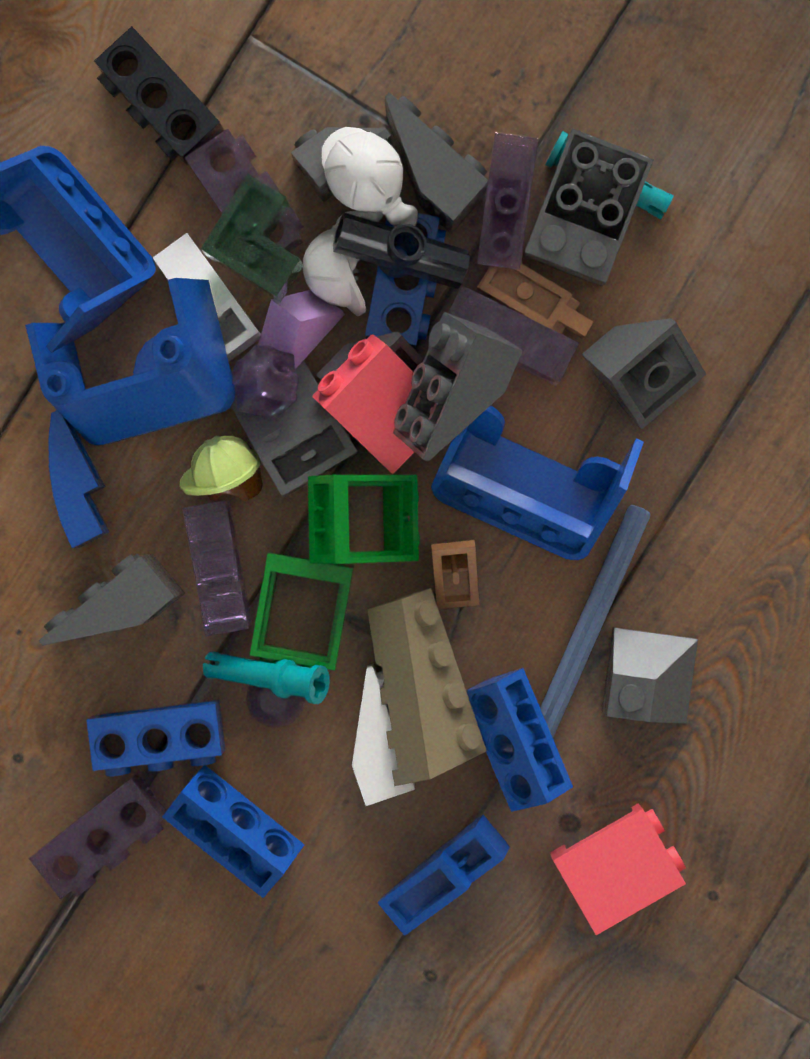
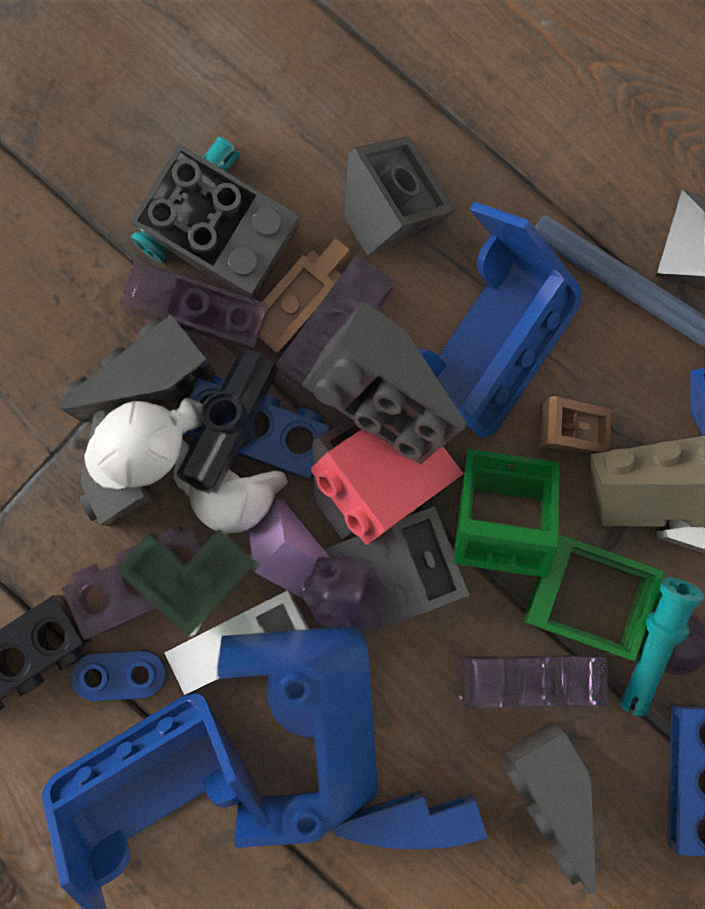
camera: 80 degrees left, 5 degrees down
(159, 195) = (118, 675): none -> blue plate
(222, 468) = (426, 656): yellowish green piece -> none

